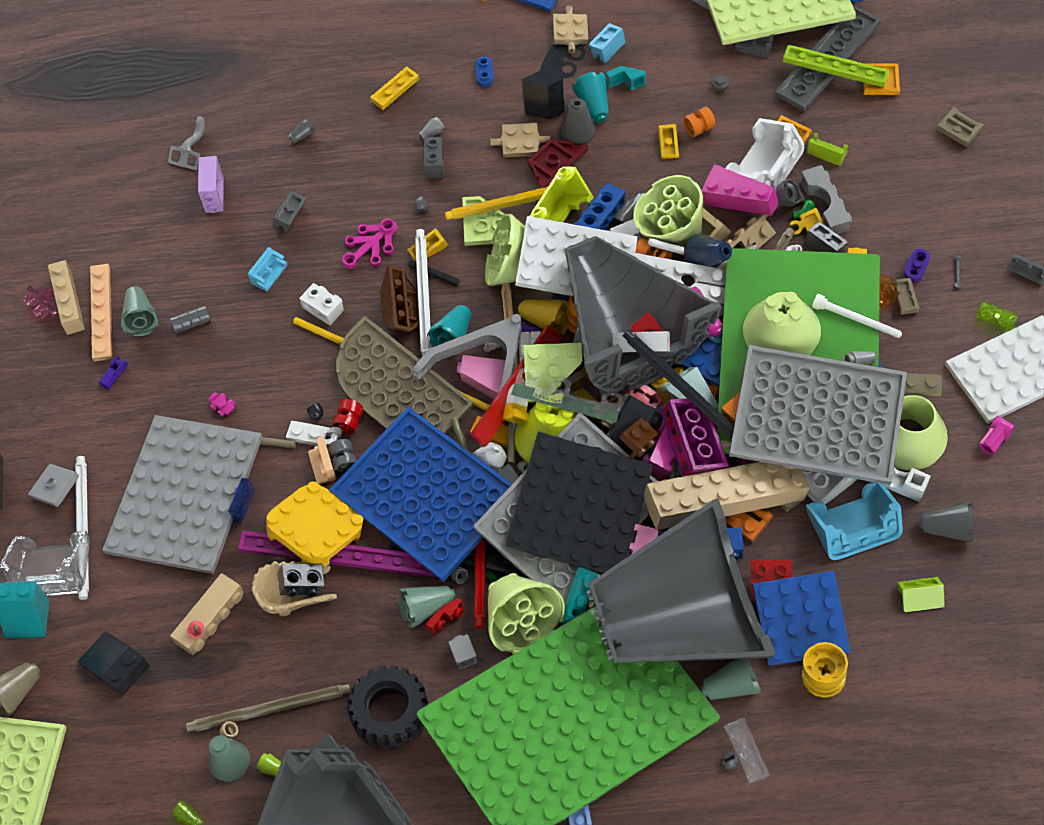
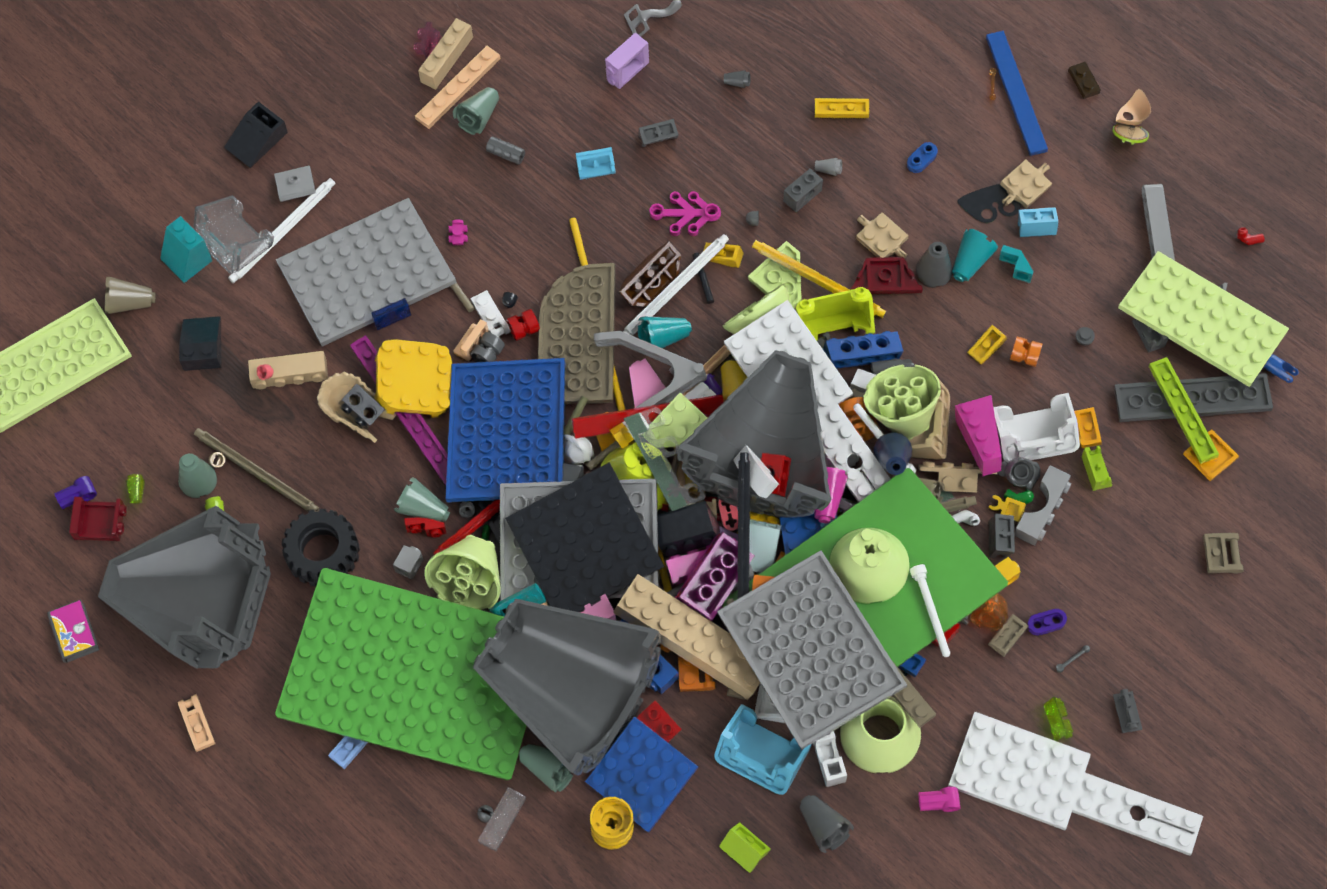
camera: 45 degrees right, 5 degrees up
(111, 374) = (413, 140): dark purple bar -> none
(322, 304) = (601, 225): white brick -> none
(543, 93) = (932, 216): black slope -> none
(639, 438) = (675, 537): reddish brown bracket -> none
(860, 357) = (893, 642): light grey cone -> none

